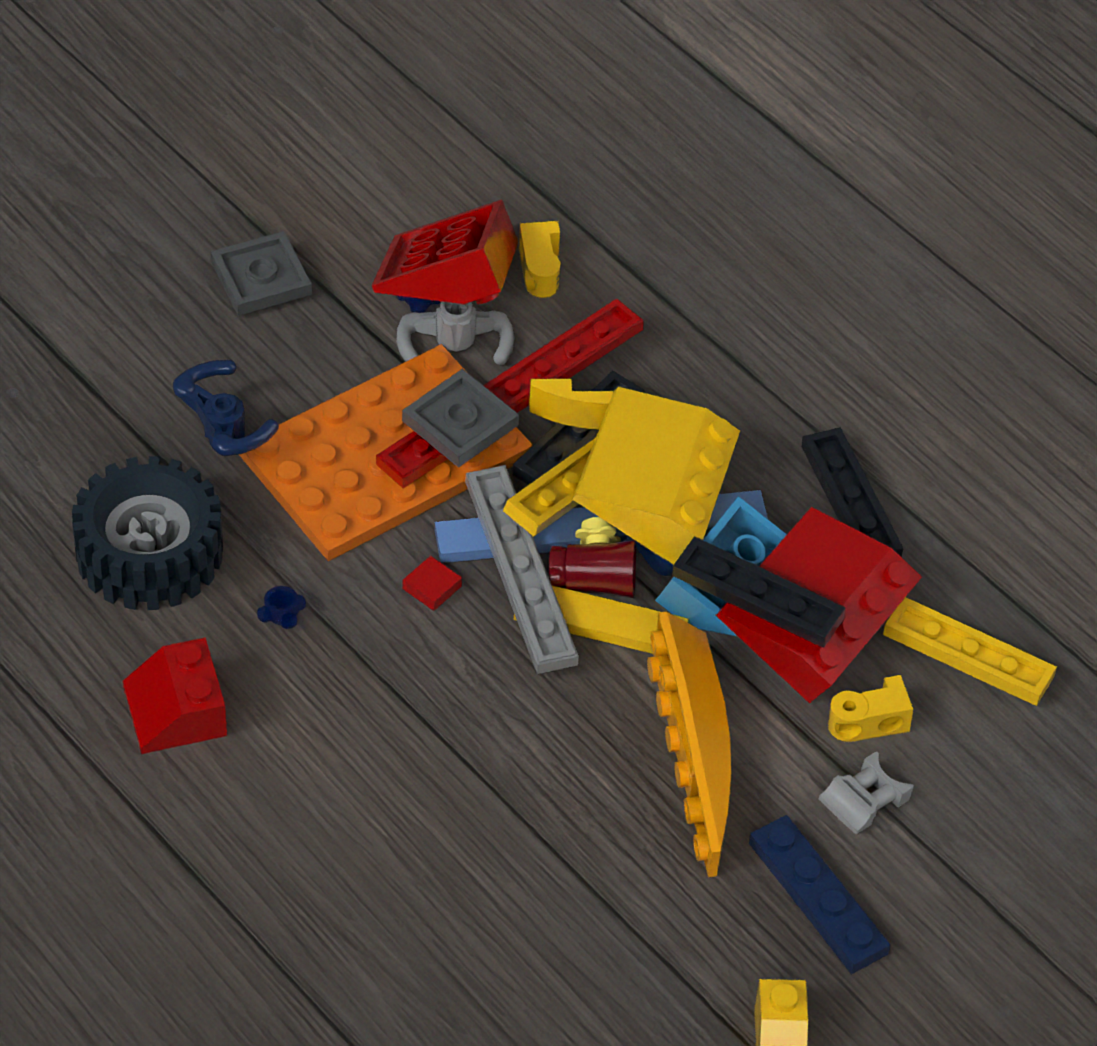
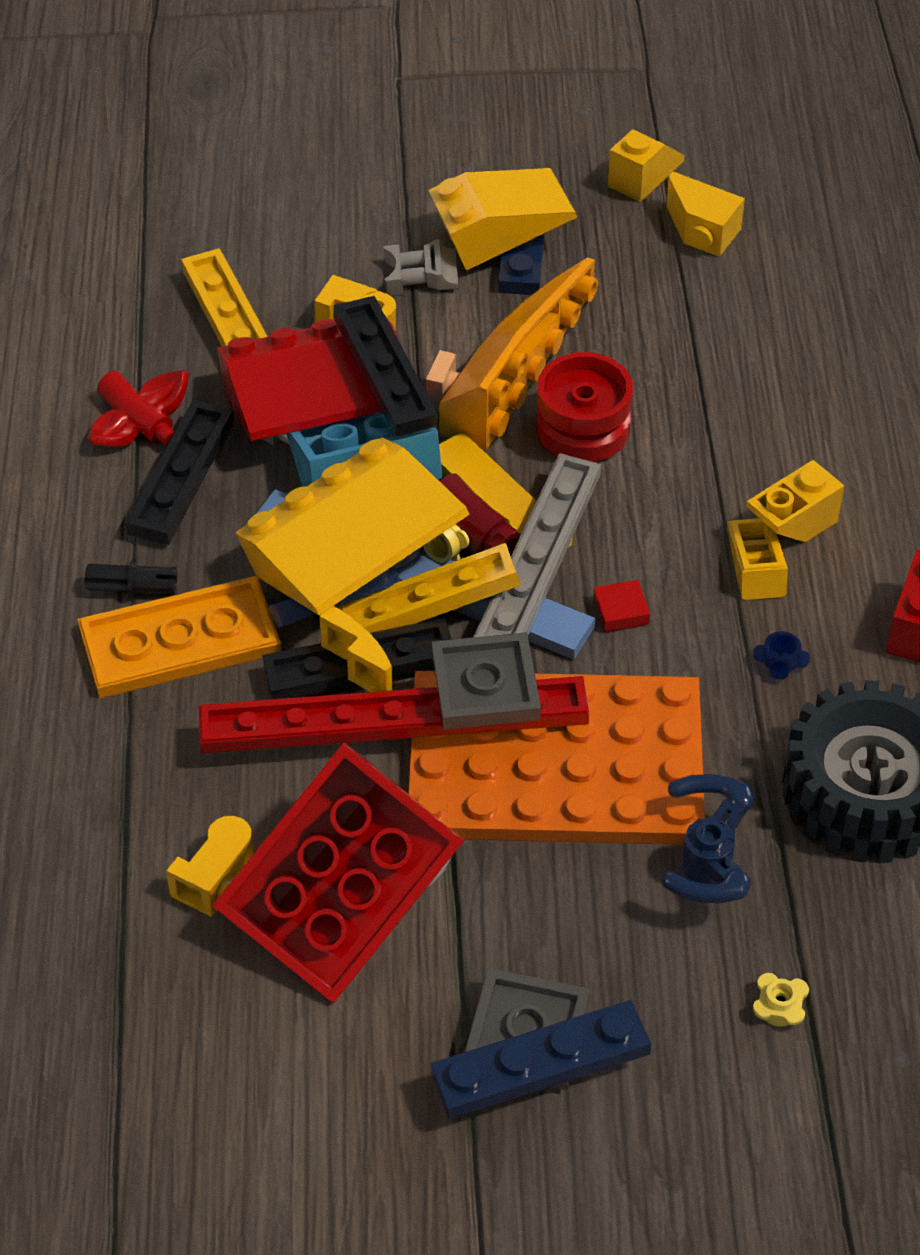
camera: 140 degrees left, 0 degrees up
(113, 373) = (780, 1012): none -> light yellow plate
(233, 245) = (540, 1059): none -> dark blue plate
(354, 718) = (800, 503): none -> yellow slope
(358, 655) = (758, 562): none -> yellow slope
(594, 707) = (584, 406): none -> red wheel
(675, 997) = (703, 213): none -> yellow slope
(735, 375) = (178, 636): none -> light orange tile
(735, 680) = (441, 377): none -> light nougat plate
(793, 401) = (131, 579): none -> black axle
(843, 858) = (499, 210): none -> yellow slope
(939, 523) = (138, 412): none -> red plant

